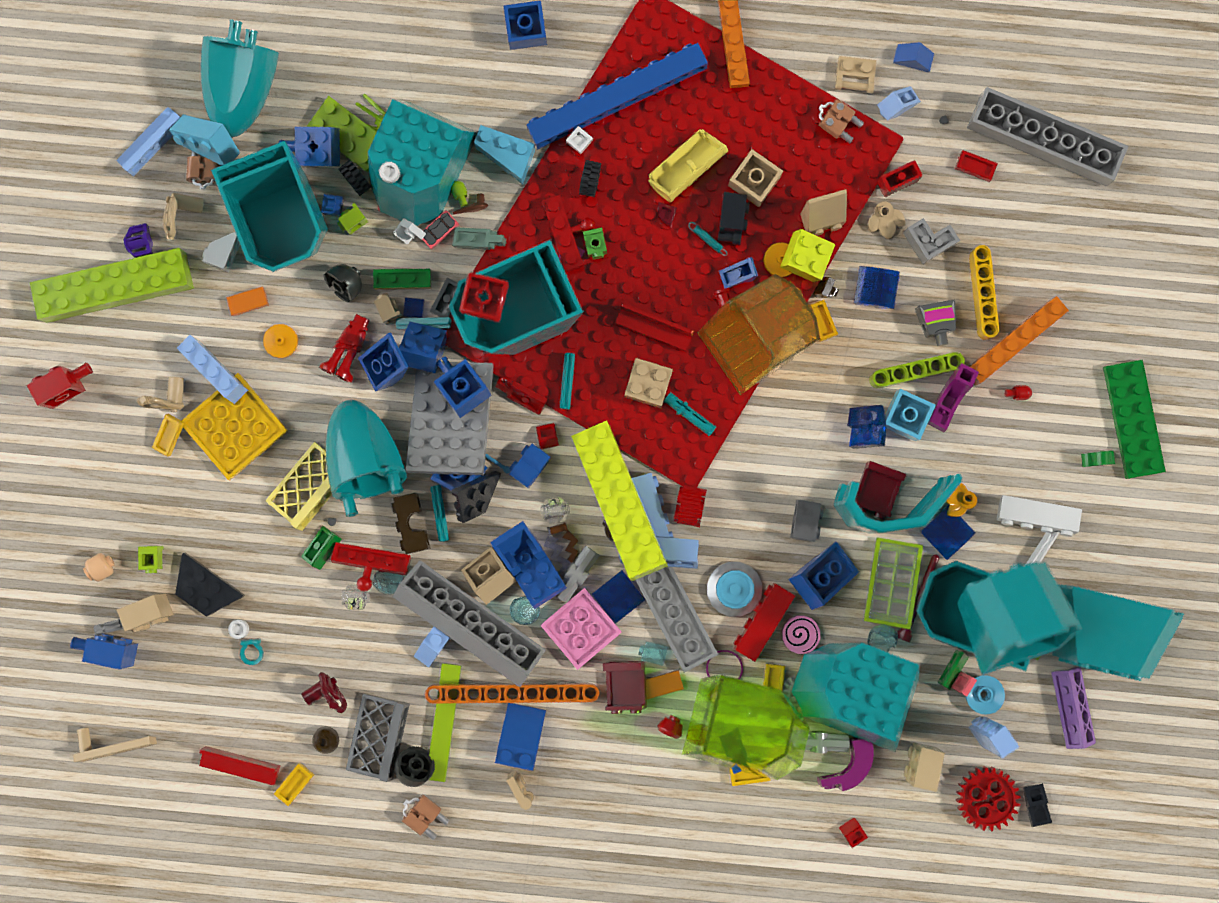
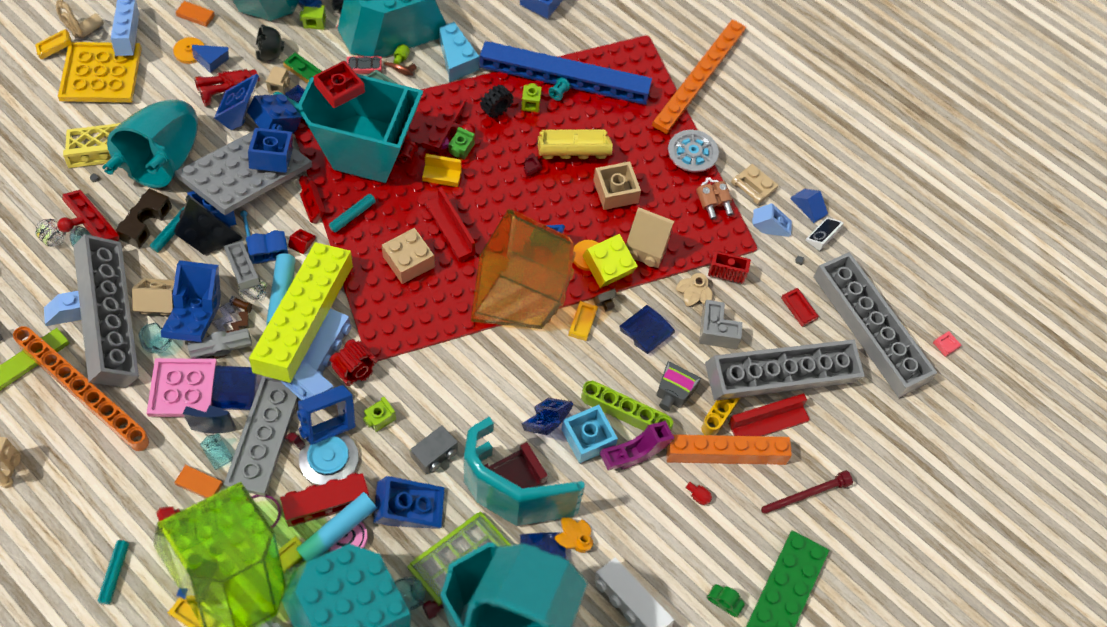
camera: 30 degrees right, 25 degrees down
(309, 335) = (210, 56): none -> blue slope
(320, 548) = (58, 187): green slope -> none
(407, 231) = (341, 48): white bracket -> none
(520, 736) = (50, 428): blue slope -> none
(532, 501) = (241, 265): none -> light grey plate
(574, 492) = (282, 280): none -> medium azure brick
(579, 140) = (512, 77): white tile -> none
(603, 283) = (442, 170): none -> yellow panel
(610, 153) = (531, 94): none -> lime brick
(625, 686) = (169, 456): dark red panel -> none
(629, 123) = (559, 89): none -> teal bush
(635, 634) = (212, 421): none -> dark blue slope
(667, 791) = (113, 572): none -> teal axle
(690, 414) = (417, 294): teal pin -> none
(700, 598) = (295, 440): none -> dark red tile
(708, 239) = (546, 201): teal piece -> none
(712, 564) = (327, 429): none -> blue window
(732, 217) = (576, 198): black hinge -> none
(746, 521) = (386, 417): none -> lime brick
(786, 87) = (693, 150): none -> flat silver piece
(794, 637) = (337, 528): none -> medium azure brick
(946, 76) = (824, 233): none -> slope
(1014, 242) = (783, 369): none -> light grey brick
(1025, 287) = (770, 417): none -> red panel
(1110, 103) = (947, 343): none -> coral tile
(1113, 293) = (842, 479): none -> dark red piece

